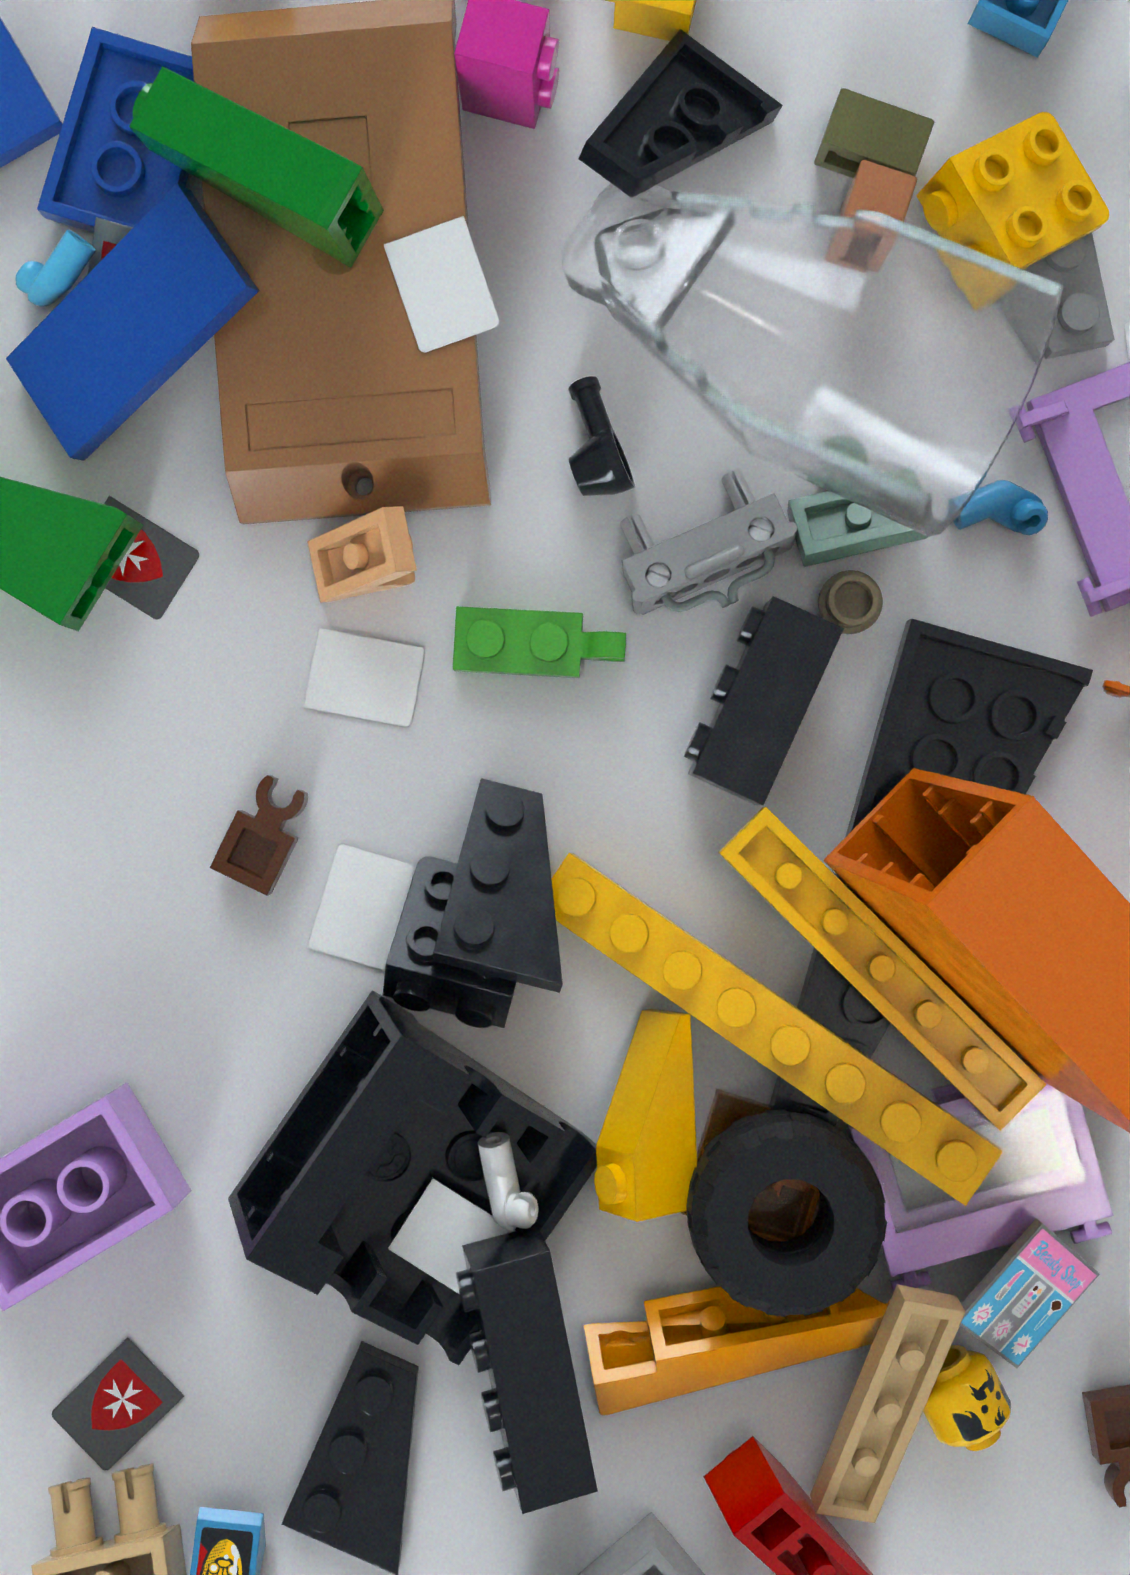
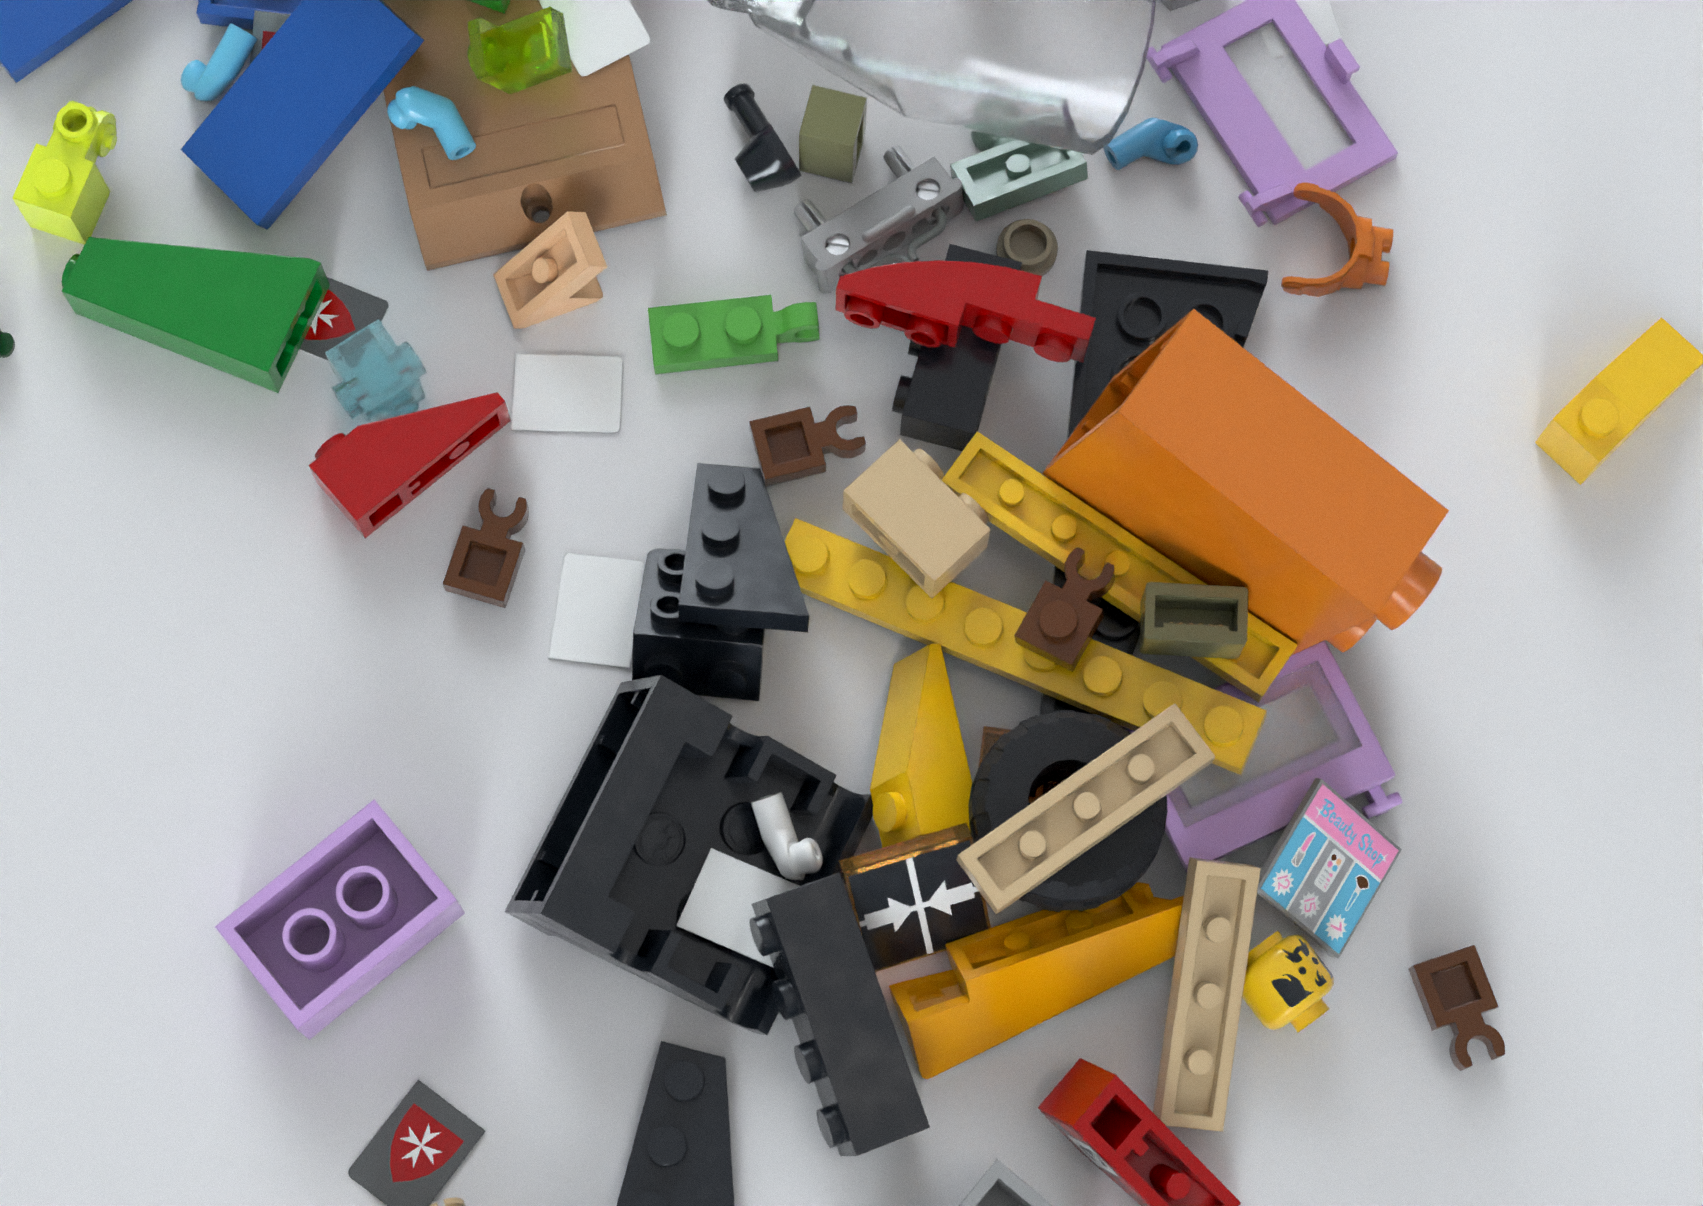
camera: 15 degrees left, 15 degrees down
(167, 735) = (397, 458): none -> red slope
(172, 639) = (376, 375): none -> clear light blue brick
(256, 367) = (435, 111): none -> medium azure arm
(357, 318) = (520, 50): none -> clear neon green bracket
(580, 776) = (795, 446): none -> reddish brown plate
(621, 1263) = (914, 897): none -> black tile
(673, 451) = (832, 133): none -> olive piece
(691, 896) = (917, 516): none -> tan brick
(753, 664) = (941, 296): none -> red slope
(805, 1244) = (1085, 808): none -> tan plate
(816, 1024) = (1064, 618): none -> reddish brown plate
(949, 1054) = (1193, 620): none -> olive piece

